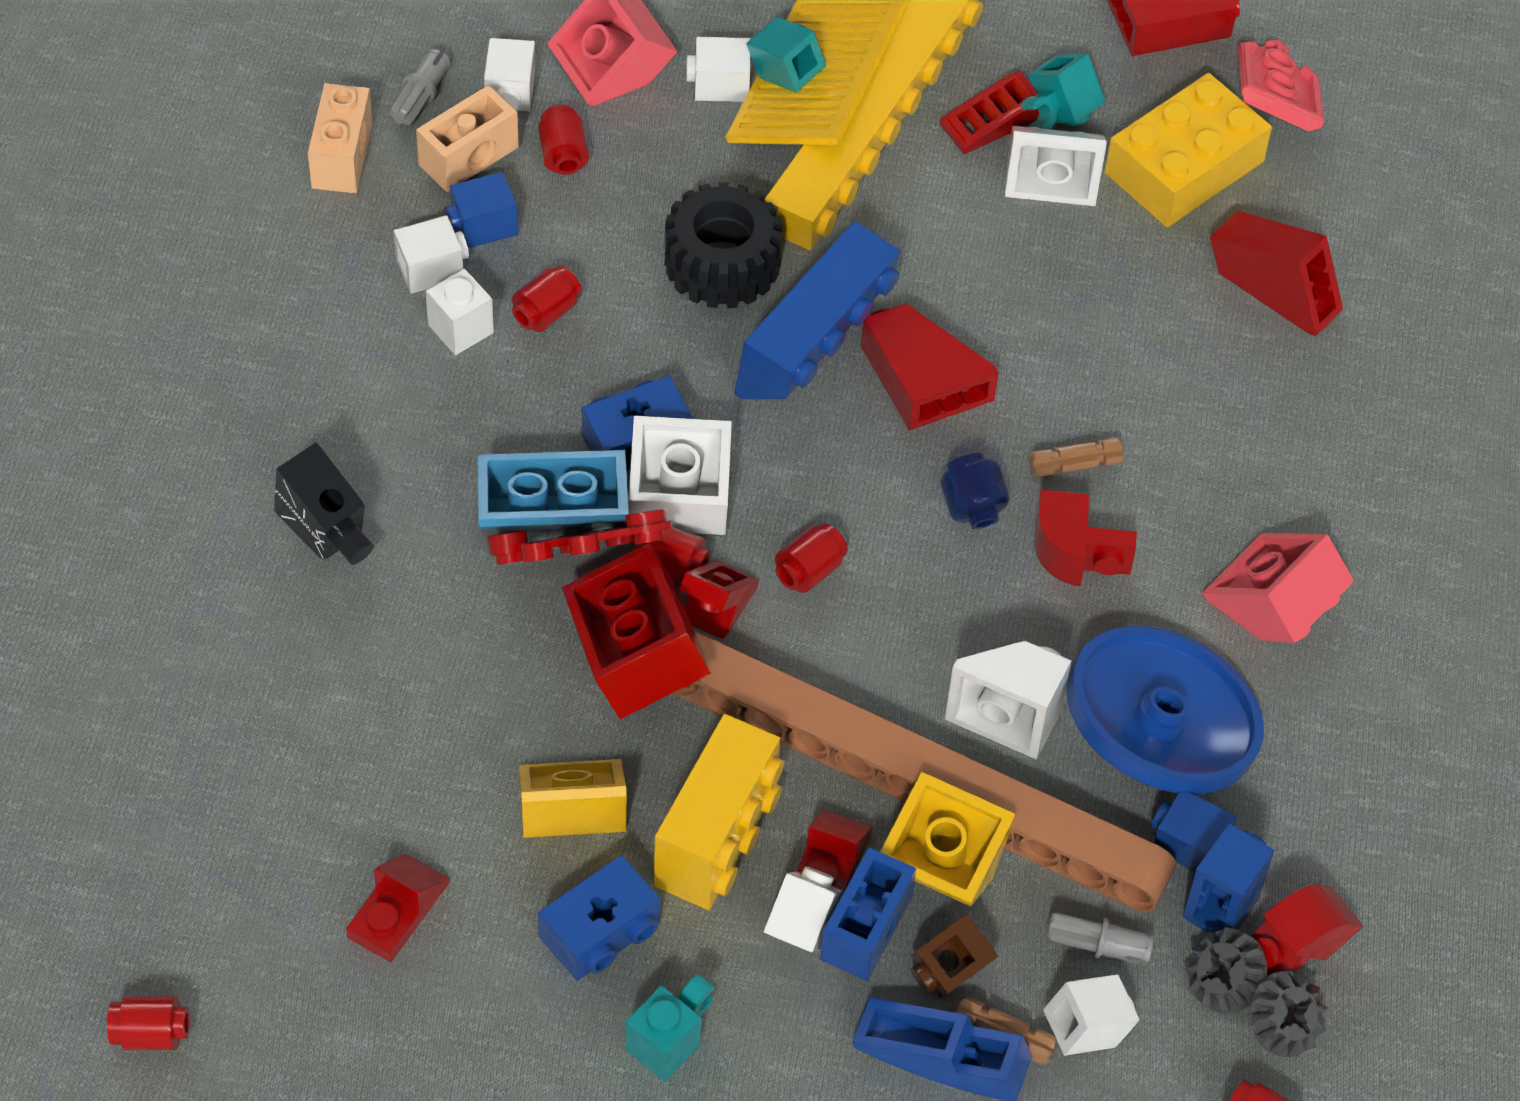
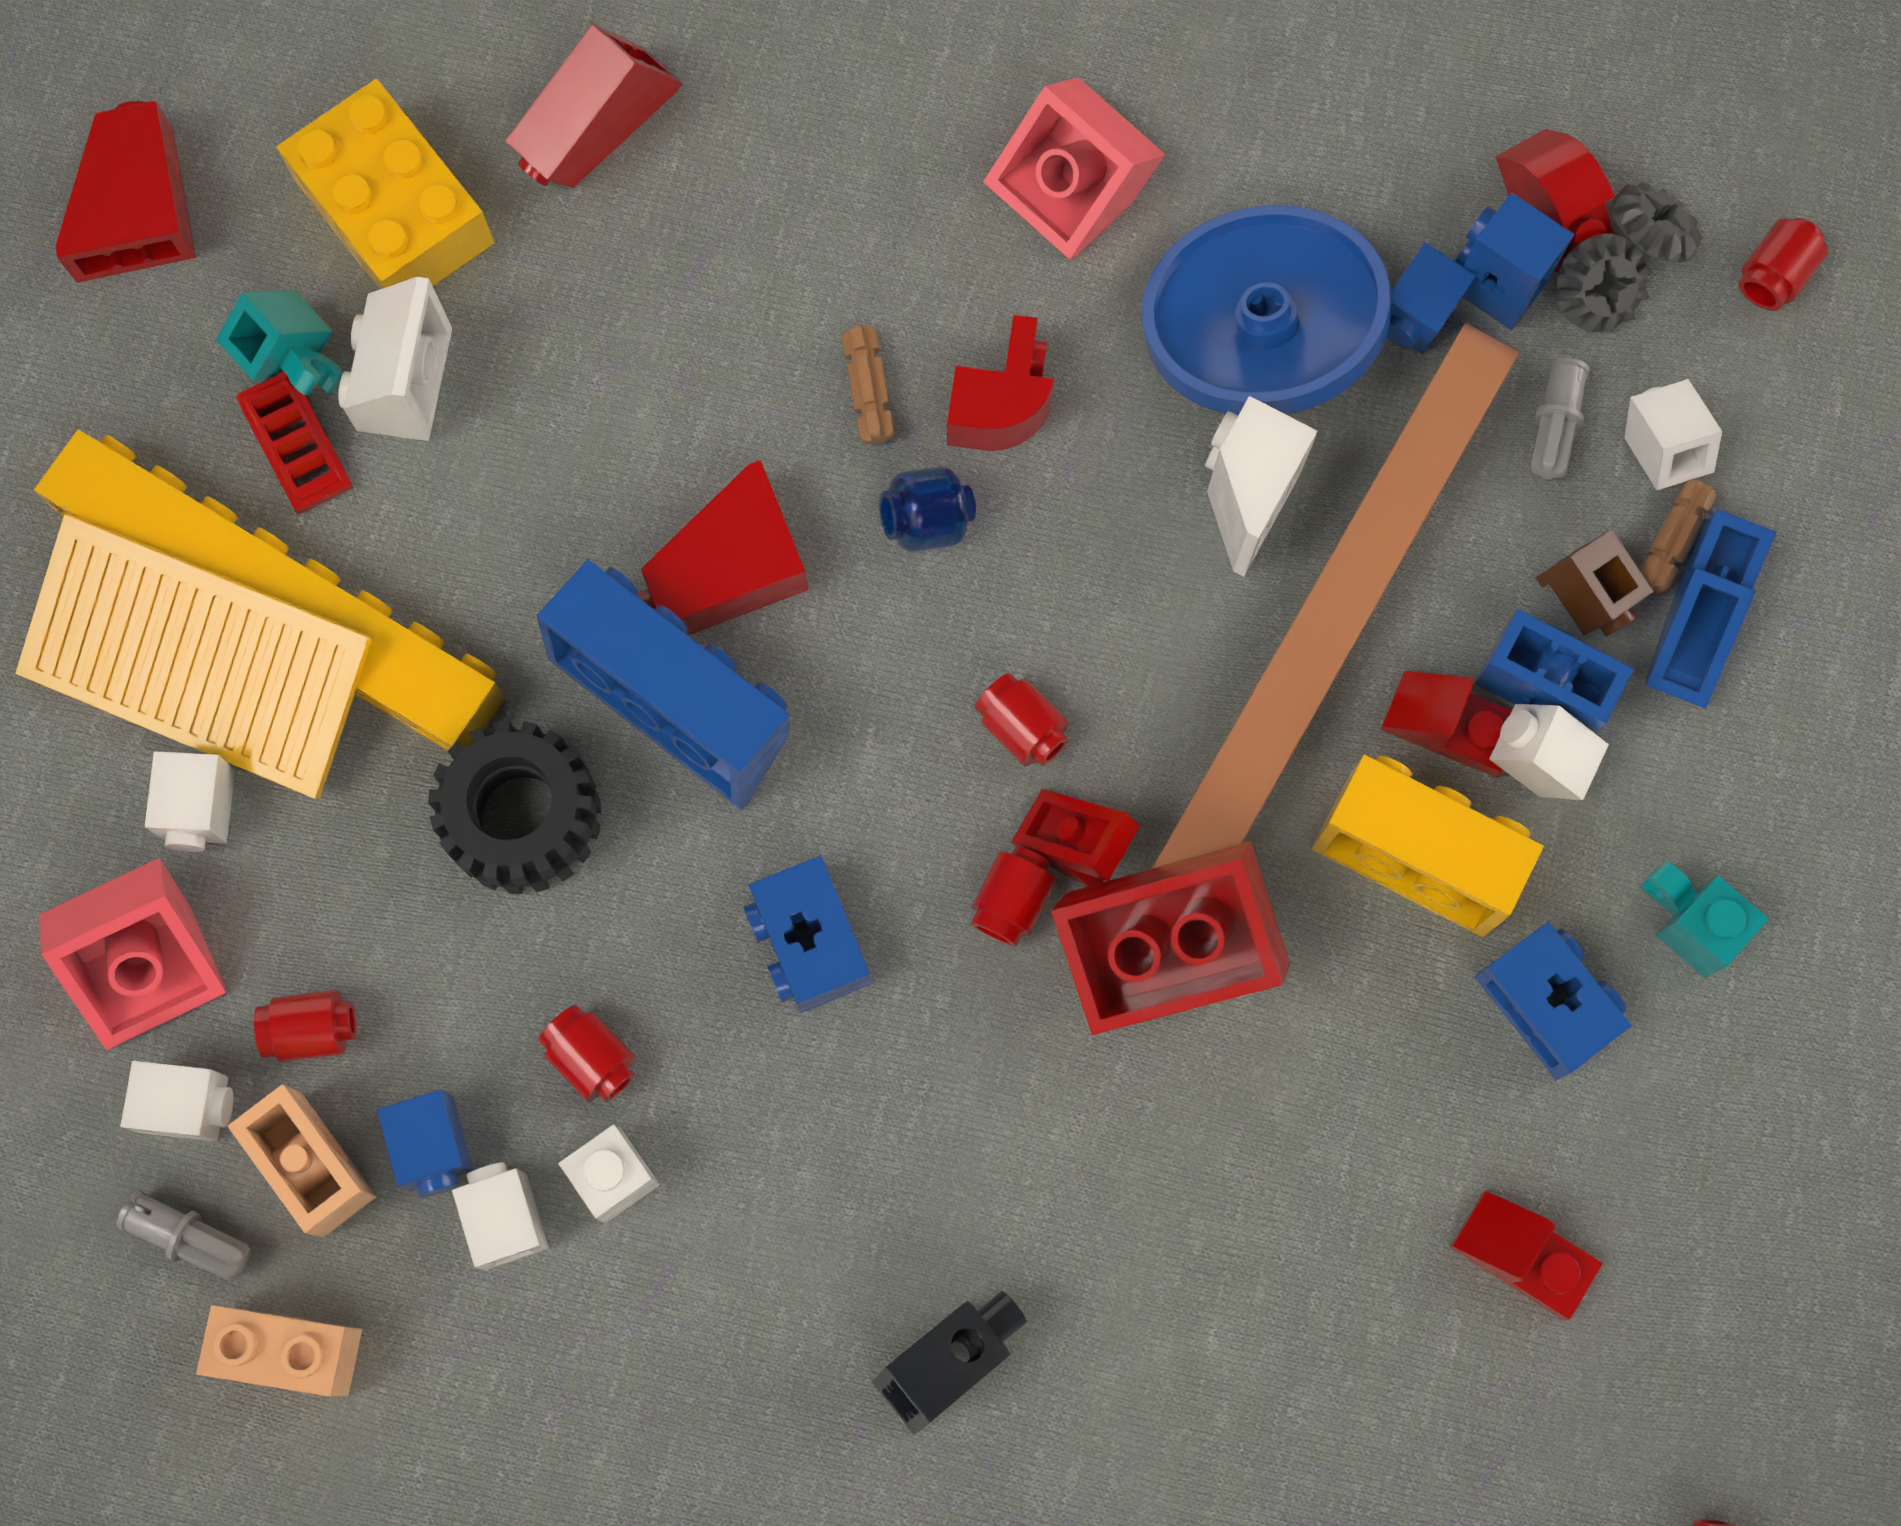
camera: 85 degrees left, 20 degrees up
(552, 490) = (950, 1044): dark azure slope -> none
(573, 798) = (1371, 1030): yellow slope -> none
(640, 528) = (1032, 924): red plant -> none
(683, 470) = (908, 876): white slope -> none
(786, 54) = (192, 701): teal brick -> none
(949, 838) = (1457, 579): yellow slope -> none
(1278, 85) = (285, 66): coral tile -> none

